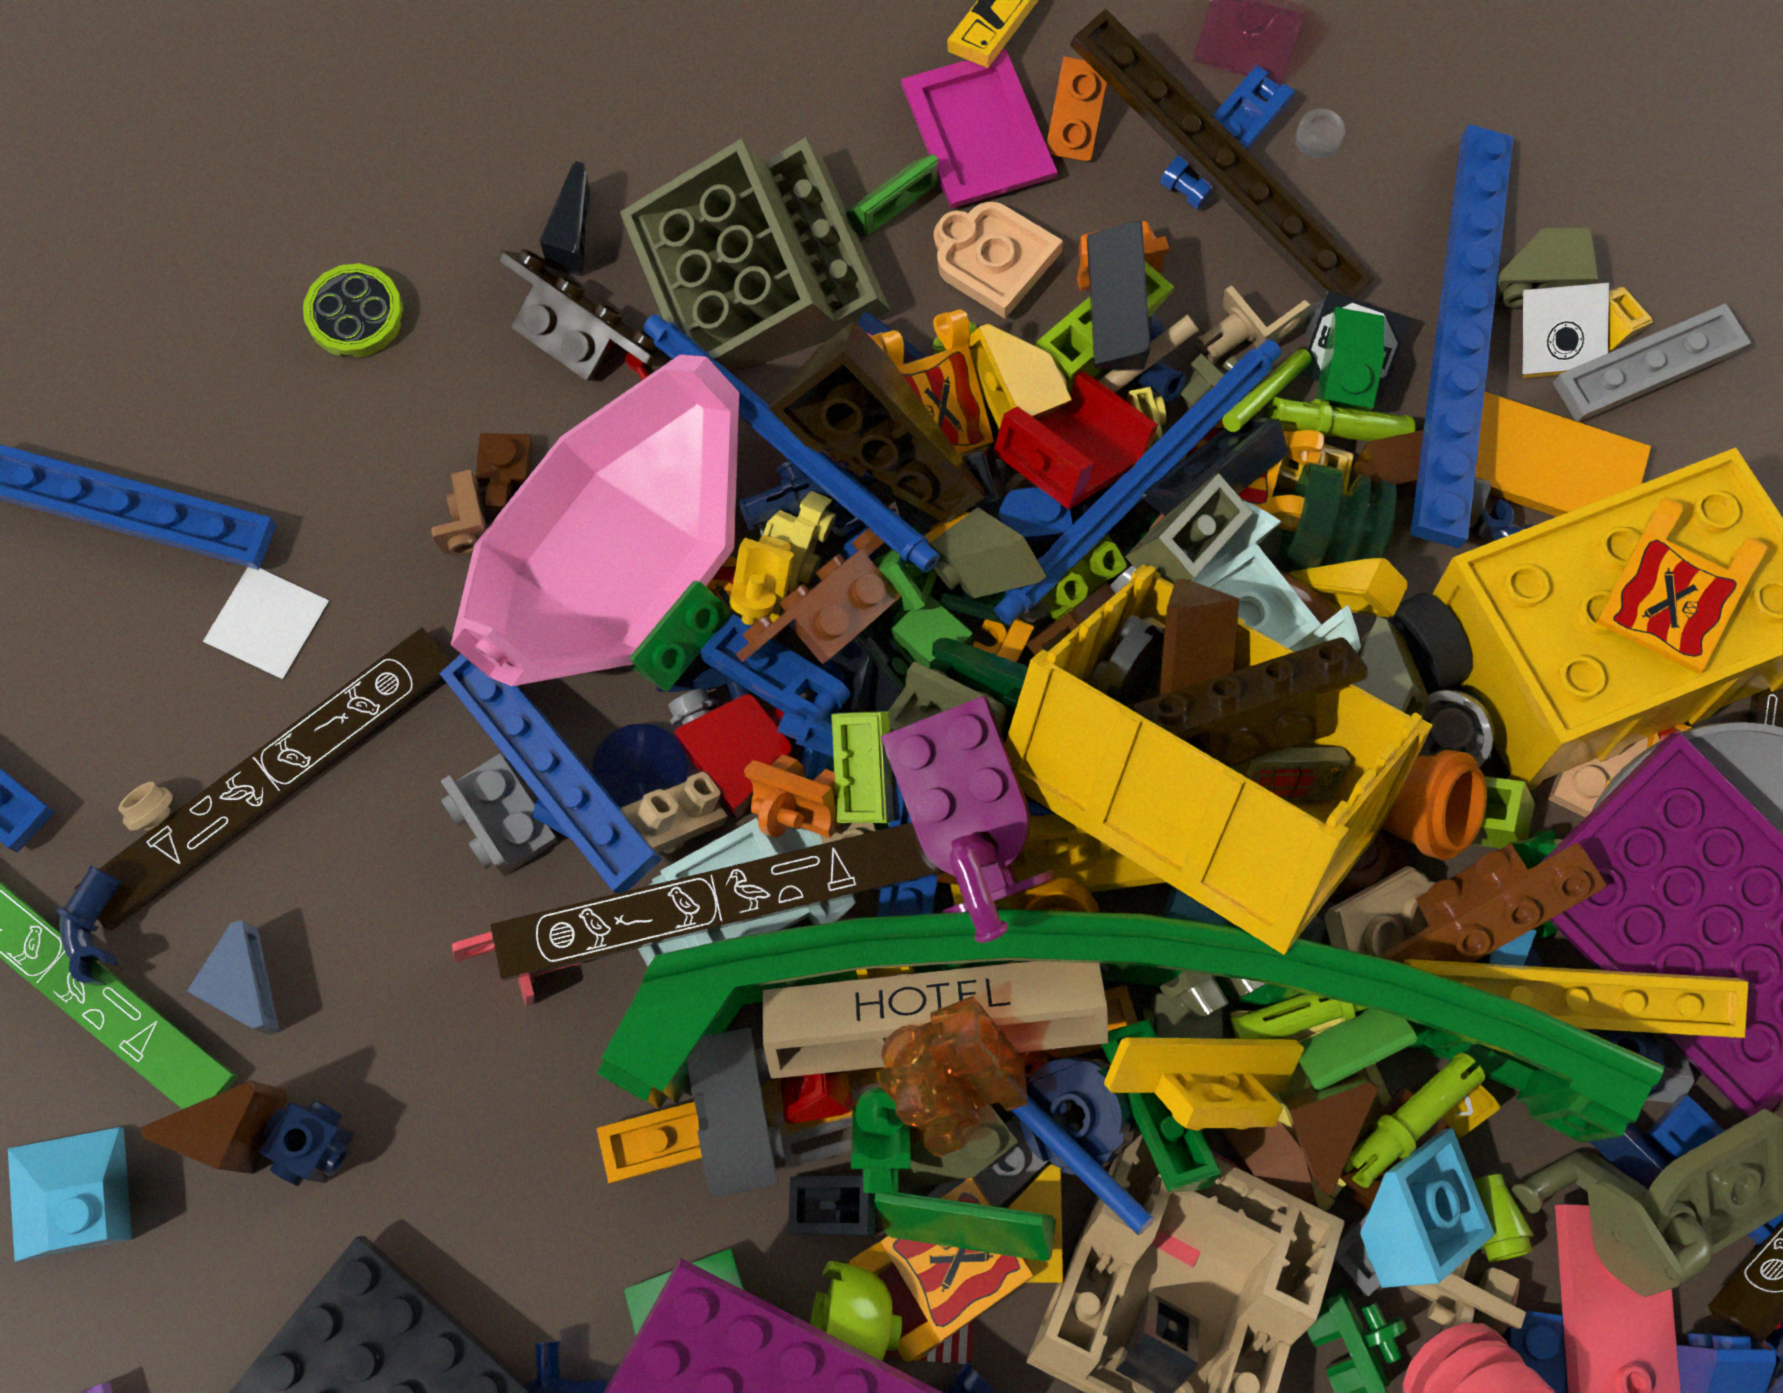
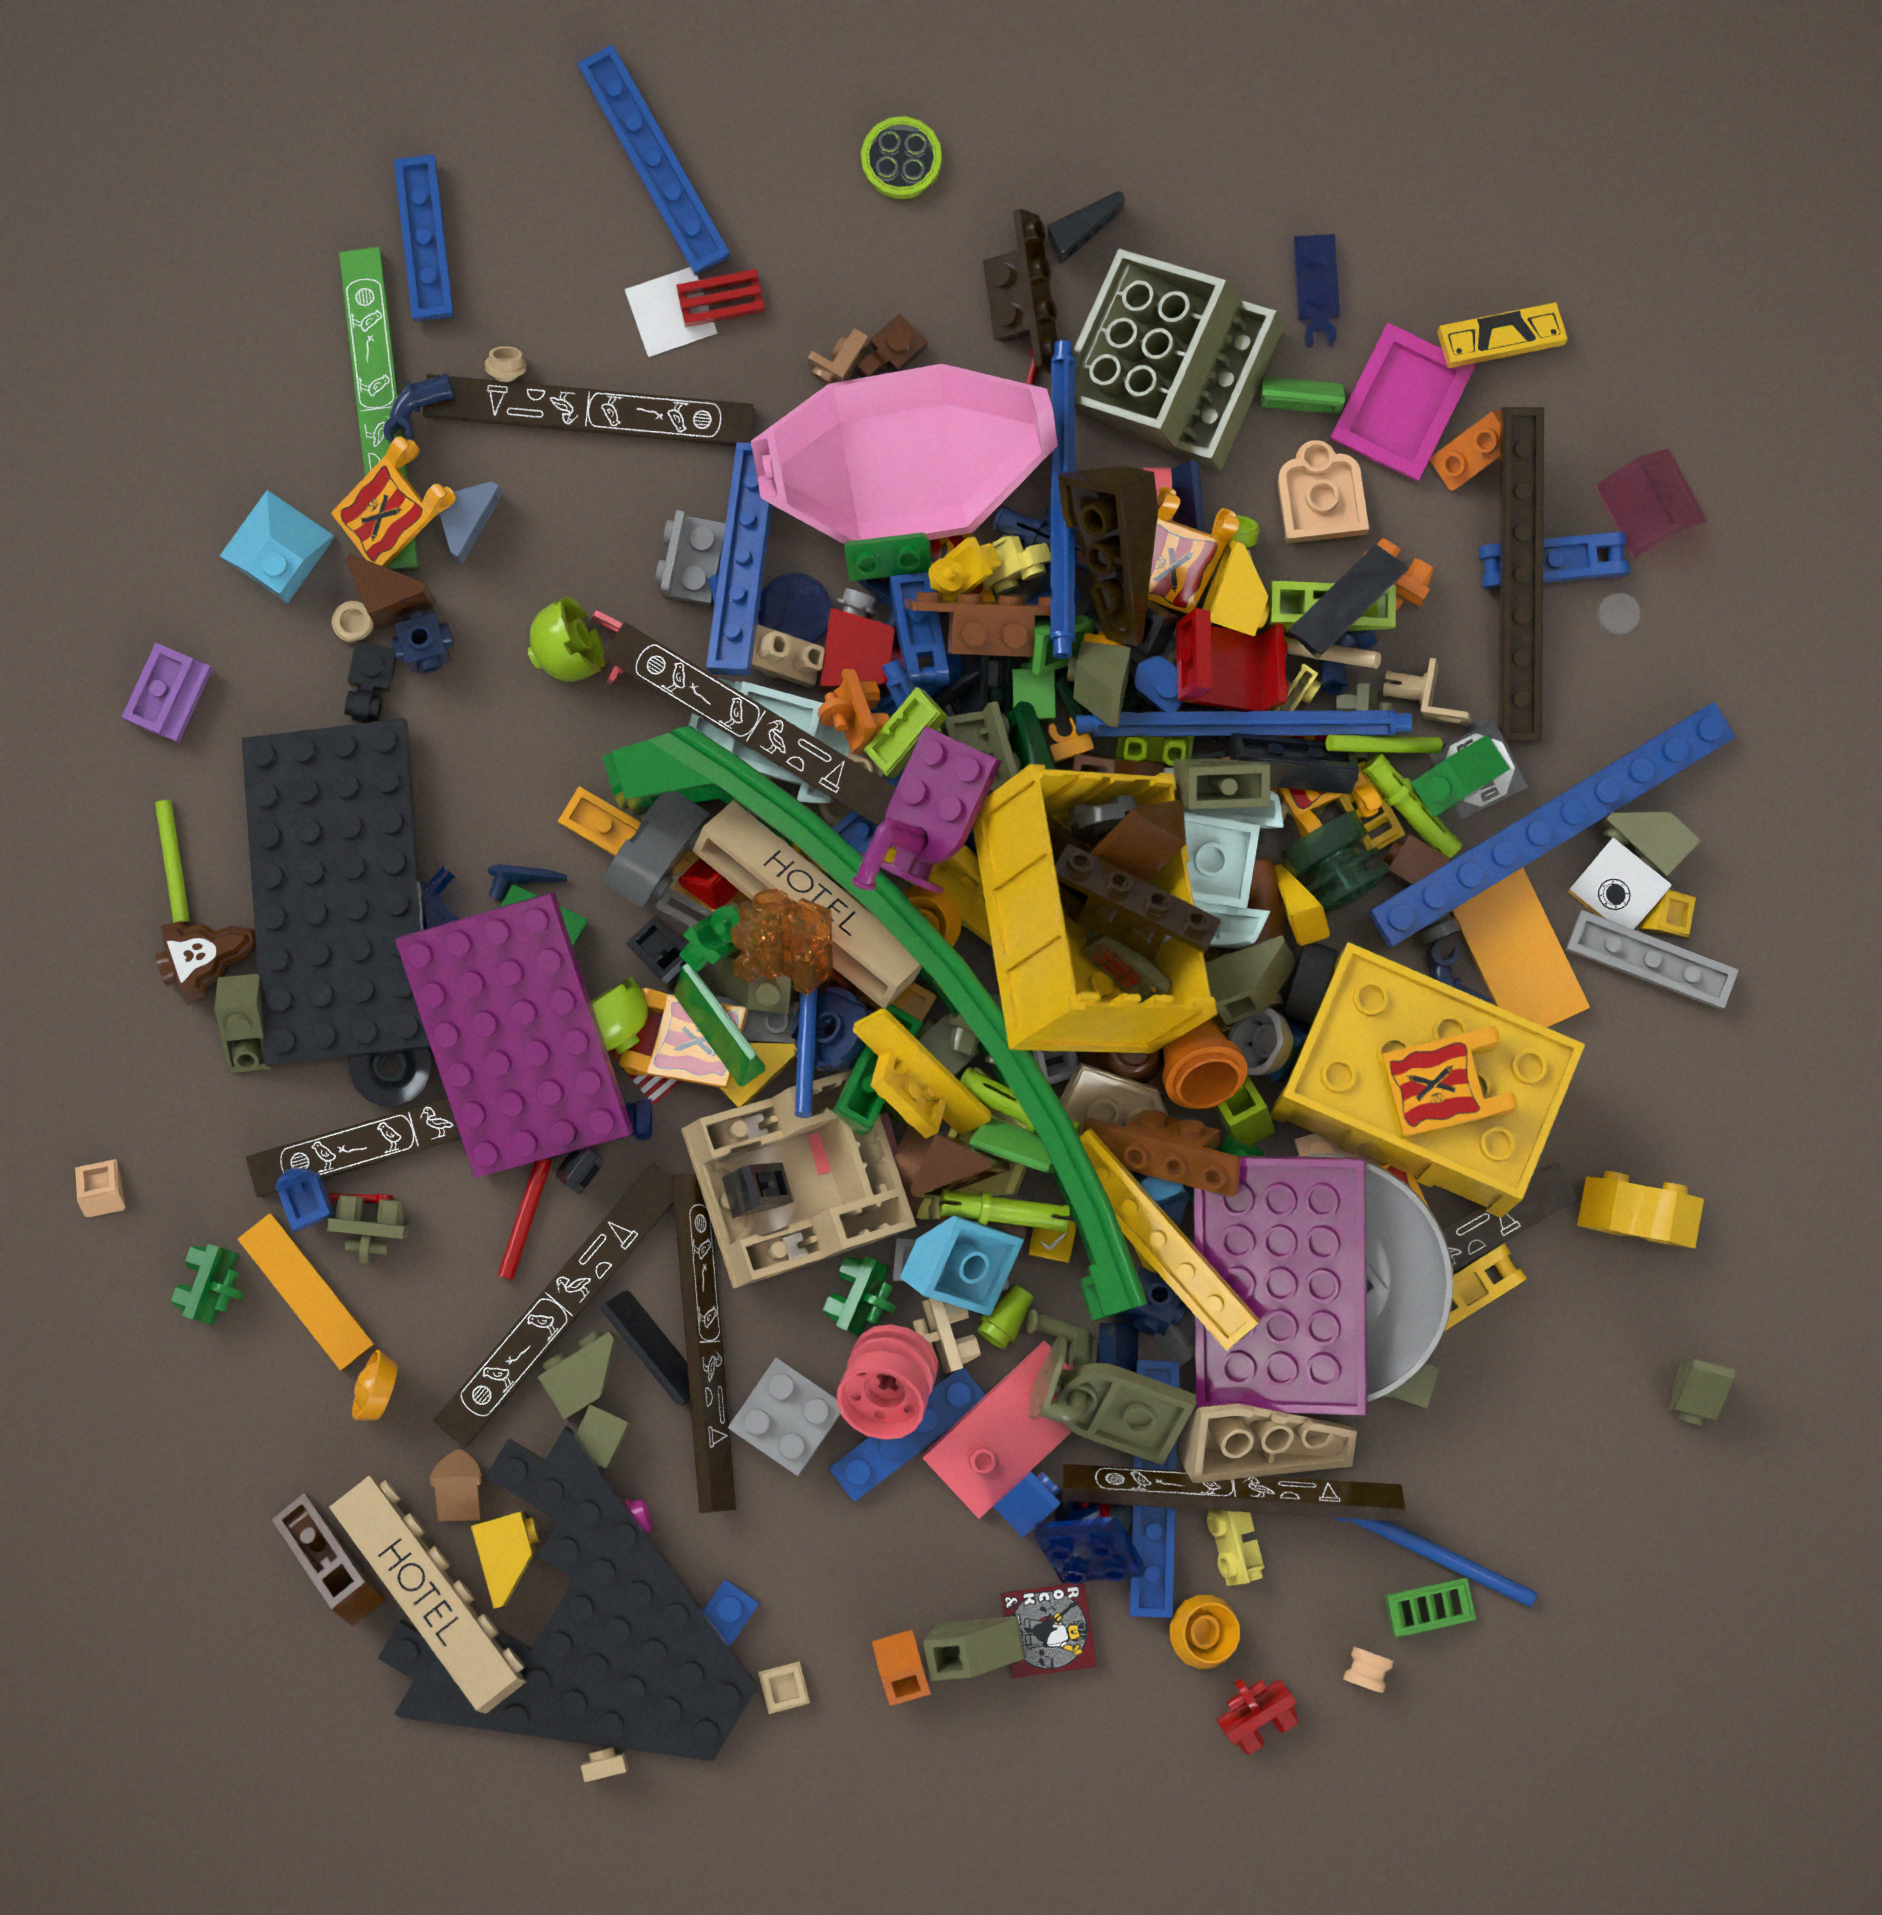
camera: 50 degrees right, 10 degrees up
(148, 1050) = (386, 510): none -> light orange flag
(217, 1193) = (352, 622): none -> tan tile
(278, 1222) = (372, 670): none -> black plate
(286, 556) = (719, 282): none -> red tile
(450, 1007) = (563, 643): none -> lime cylinder
(606, 1285) = (505, 873): none -> dark blue bar
(813, 105) = (1316, 284): none -> clear blue plate

